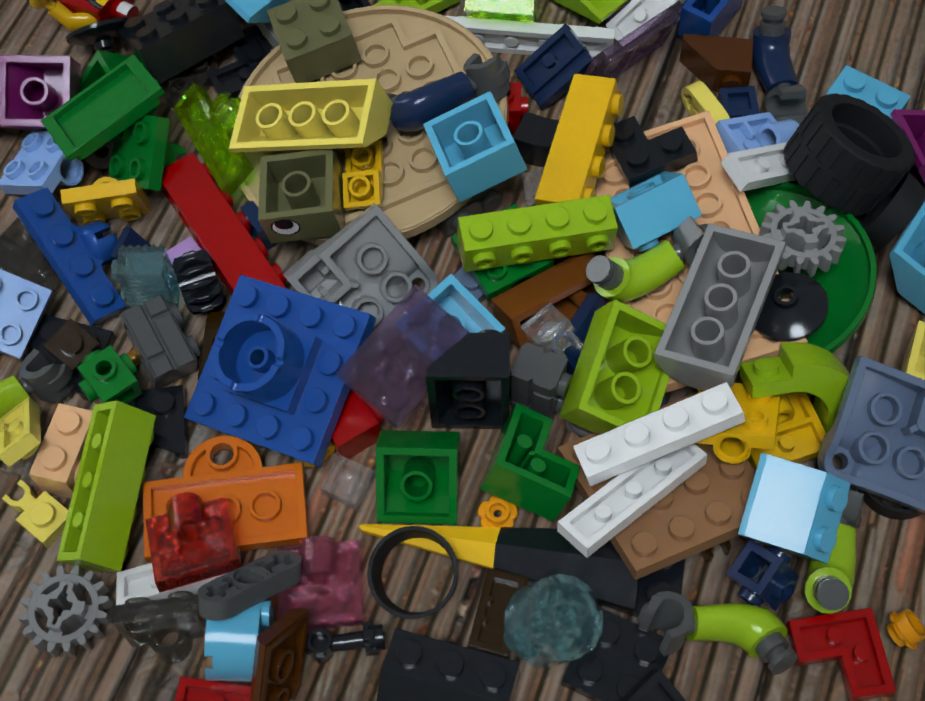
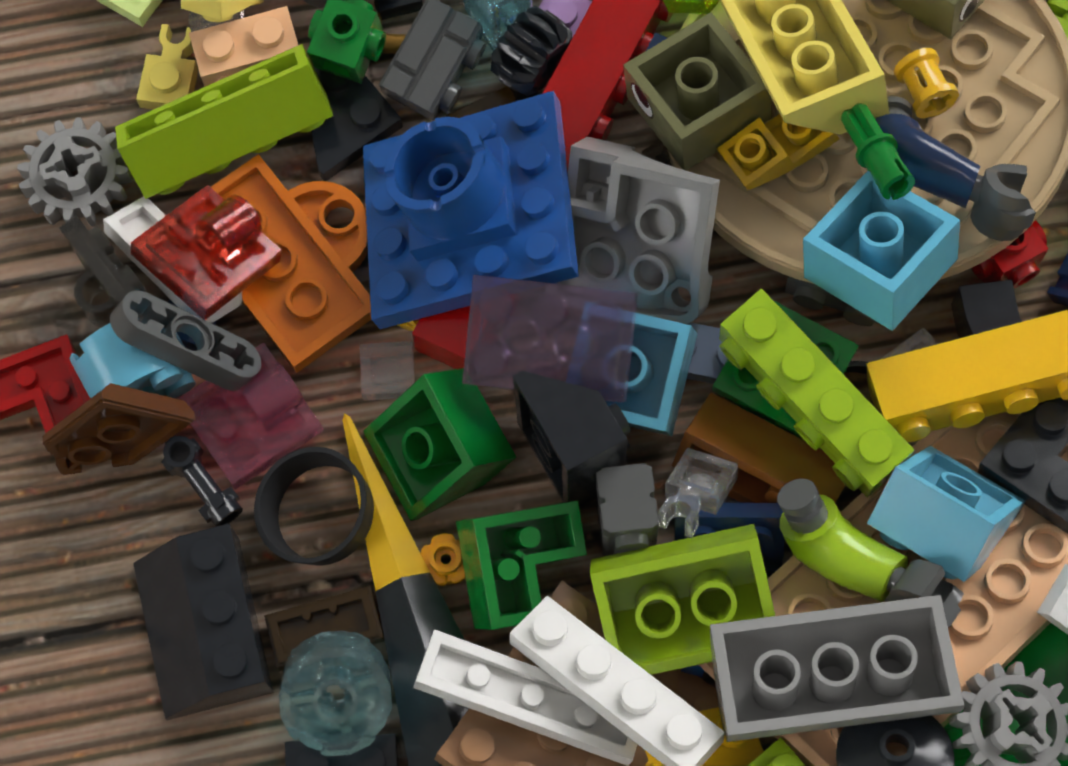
camera: 60 degrees right, 10 degrees up
(389, 78) = (923, 95): none -> yellow bush
(417, 111) = (877, 152): none -> green axle

